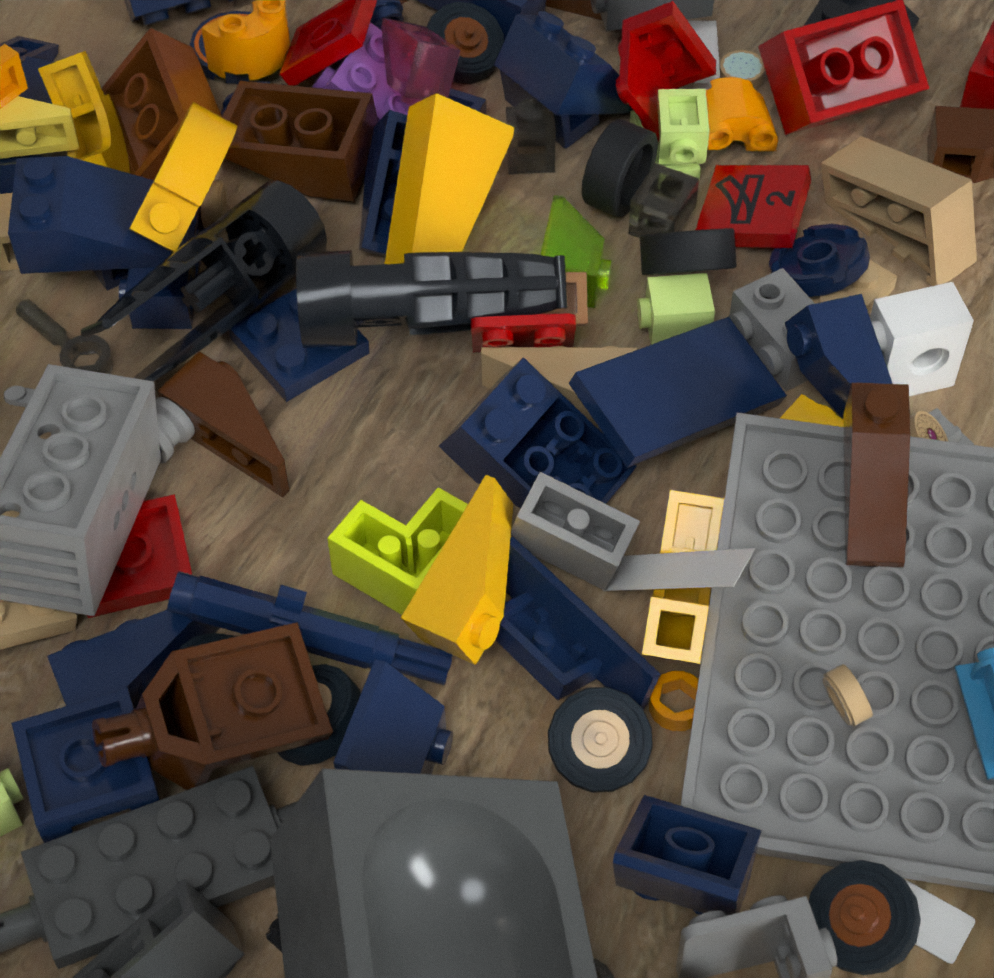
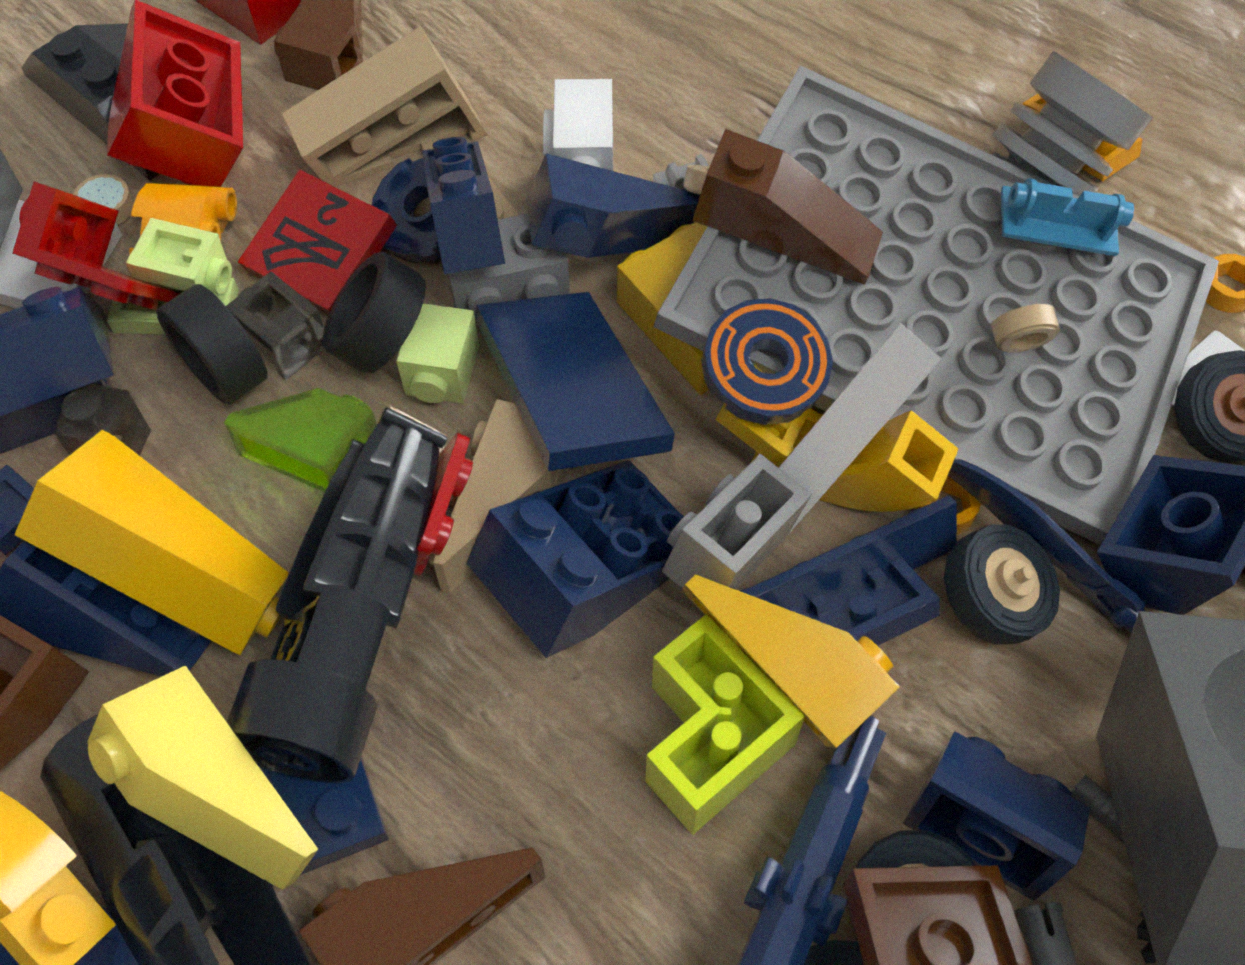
camera: 75 degrees left, 5 degrees up
(271, 236) = (193, 774): none -> light yellow slope
(601, 868) = (1015, 509): none -> dark blue sword
(714, 469) = (771, 327): none -> dark blue tile
(793, 262) = (462, 206): none -> dark blue slope

